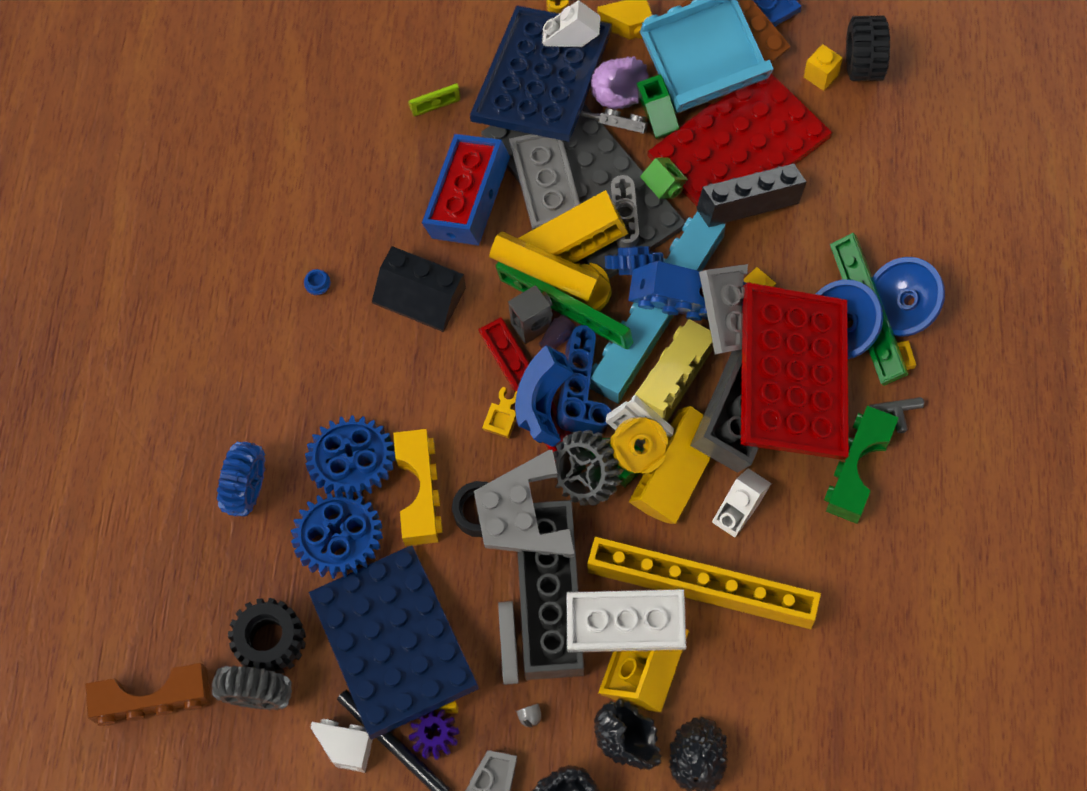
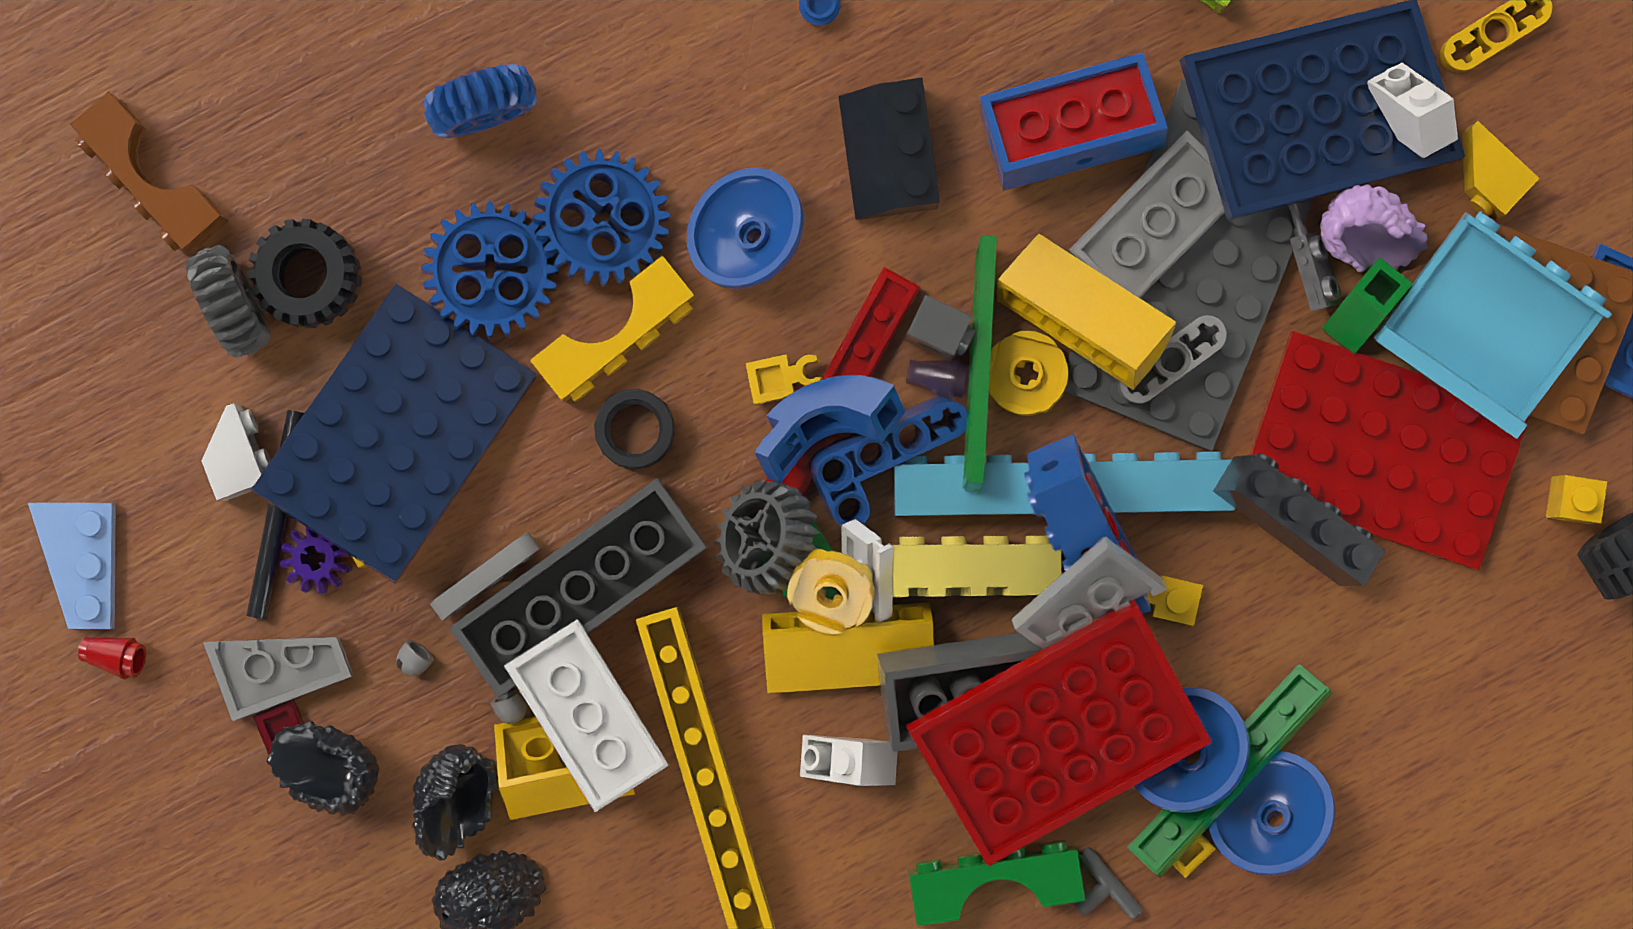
camera: 50 degrees right, 20 degrees up
(398, 377) = (731, 218): none -> blue dish
(509, 513) = (636, 481): light grey wing -> none
(543, 265) = (1012, 309): yellow brick -> none
(593, 675) = (510, 707): none -> light grey hinge
(631, 258) = (1097, 422): blue gear -> none
(664, 178) = (1258, 382): bright green brick -> none

